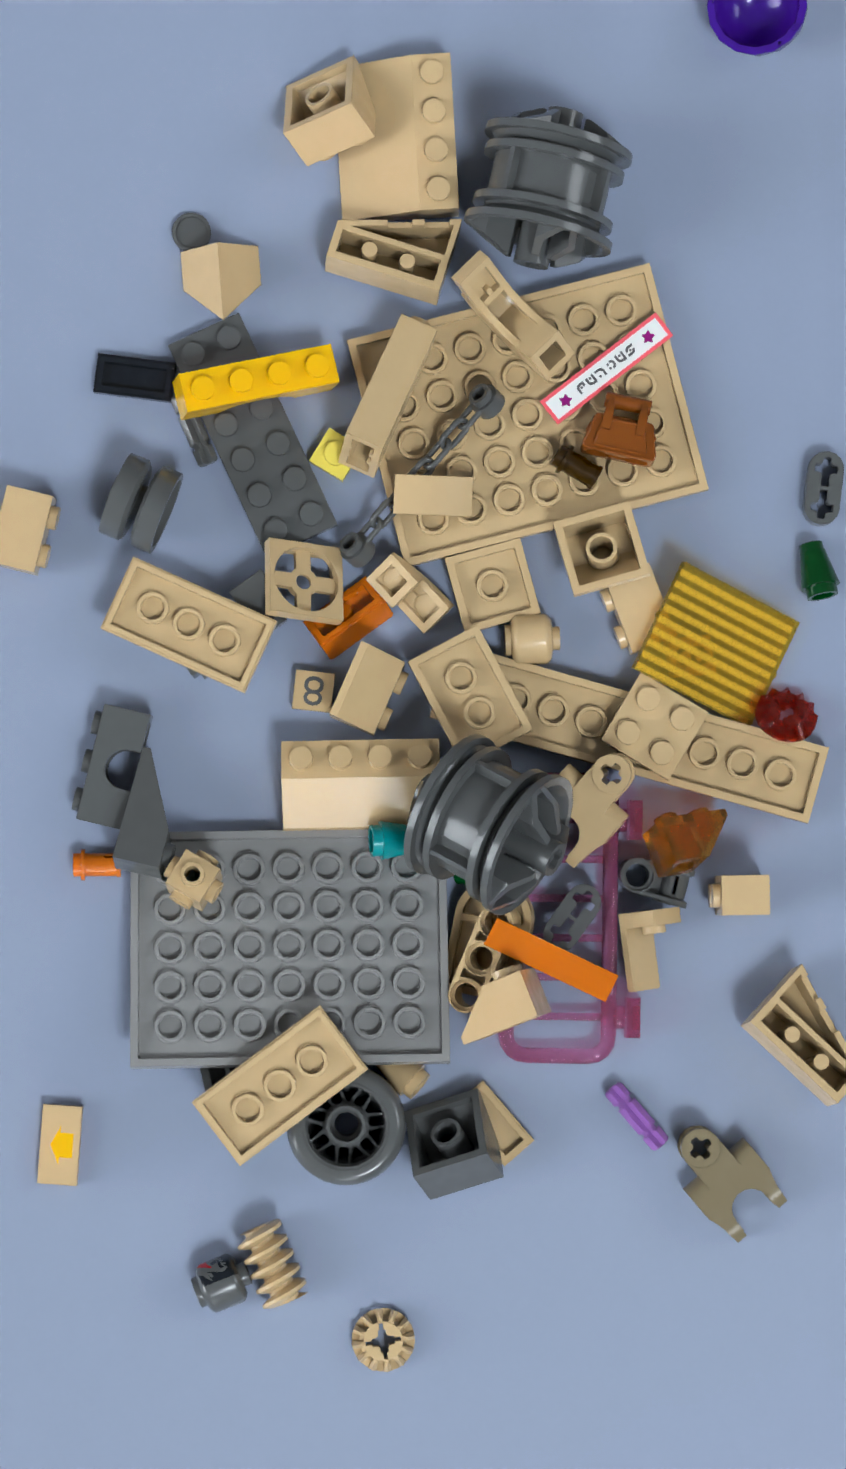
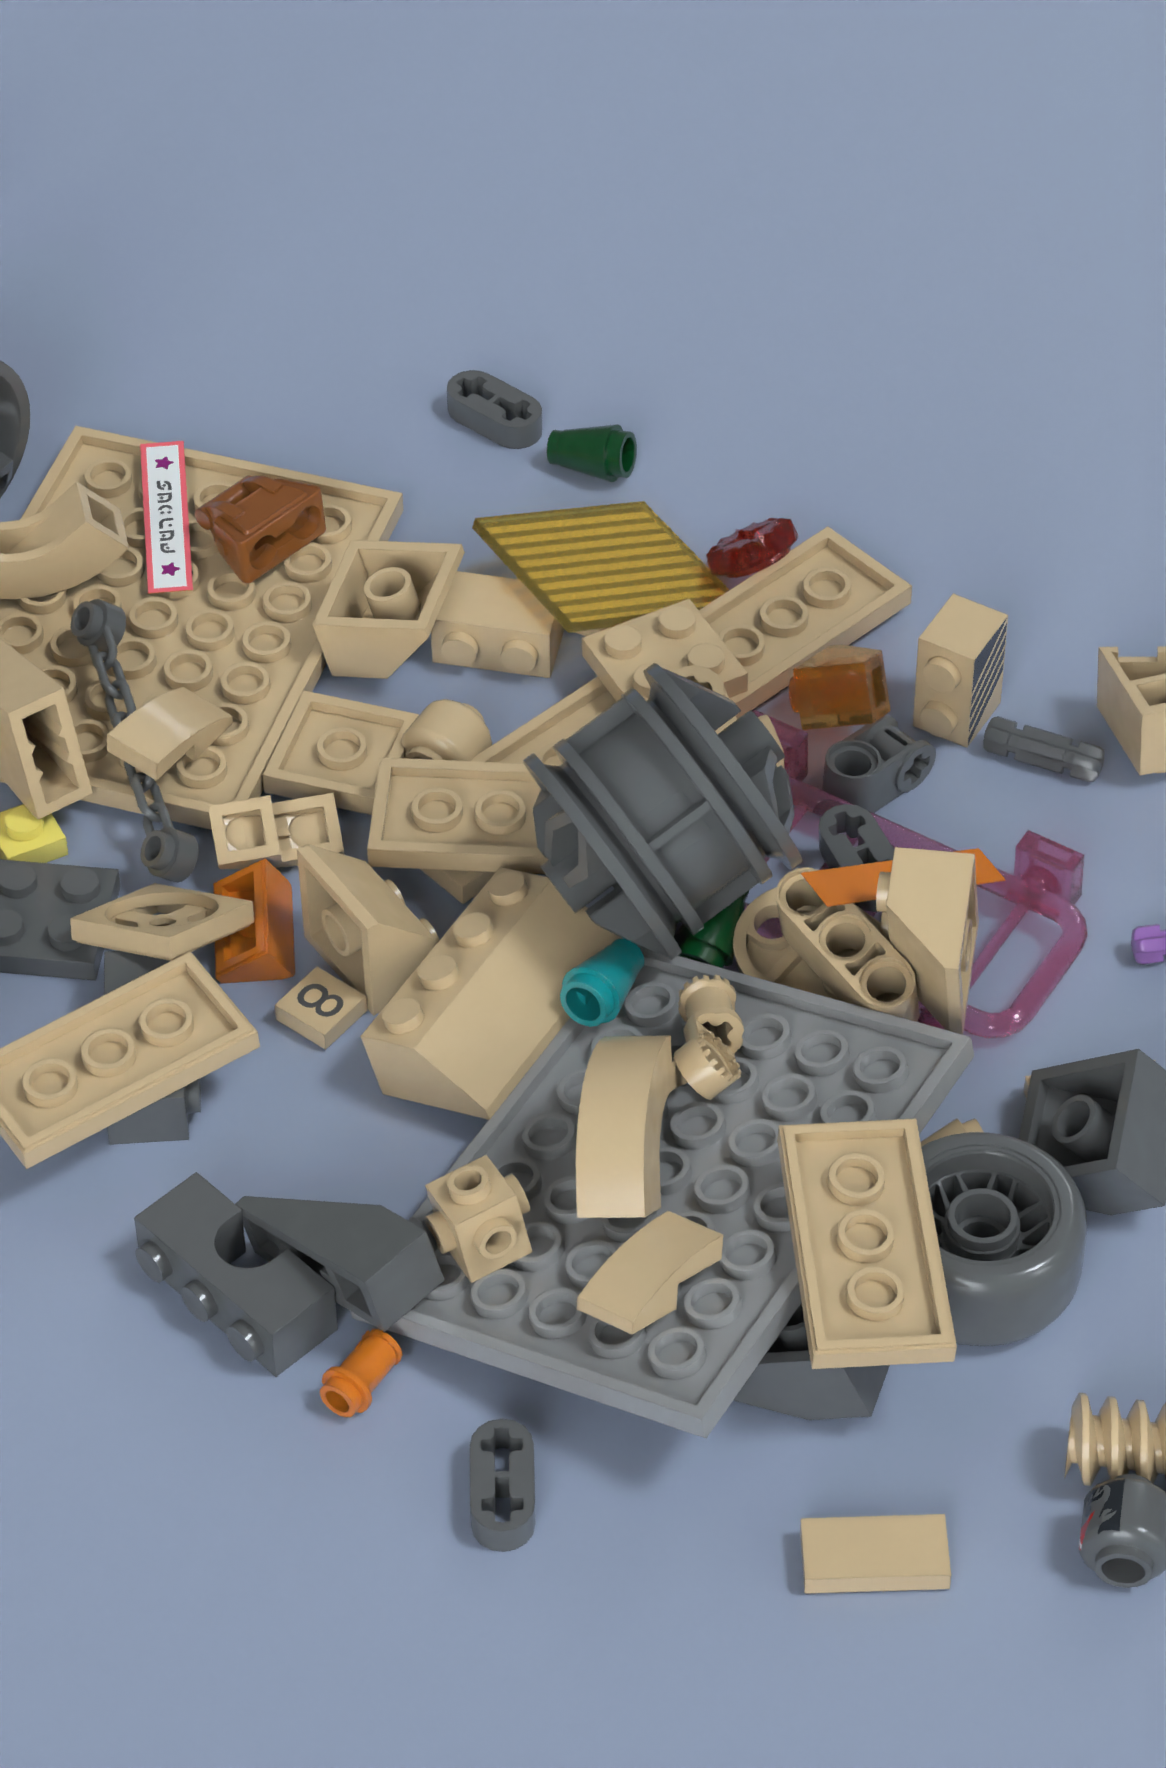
camera: 50 degrees left, 40 degrees down
(60, 1144) = (759, 1647): tan tile -> none
(82, 979) = (514, 1484): none -> dark grey beam
(144, 1168) = (875, 1553): none -> tan tile
(202, 989) = (644, 1273): none -> tan slope
(286, 920) = (622, 1126): none -> tan arch
(373, 926) = (711, 1035): none -> tan connector
(576, 466) = (260, 583): dark brown pin -> none
(638, 945) = (929, 780): tan bracket -> none
(731, 961) = (1043, 749): none -> dark grey axle

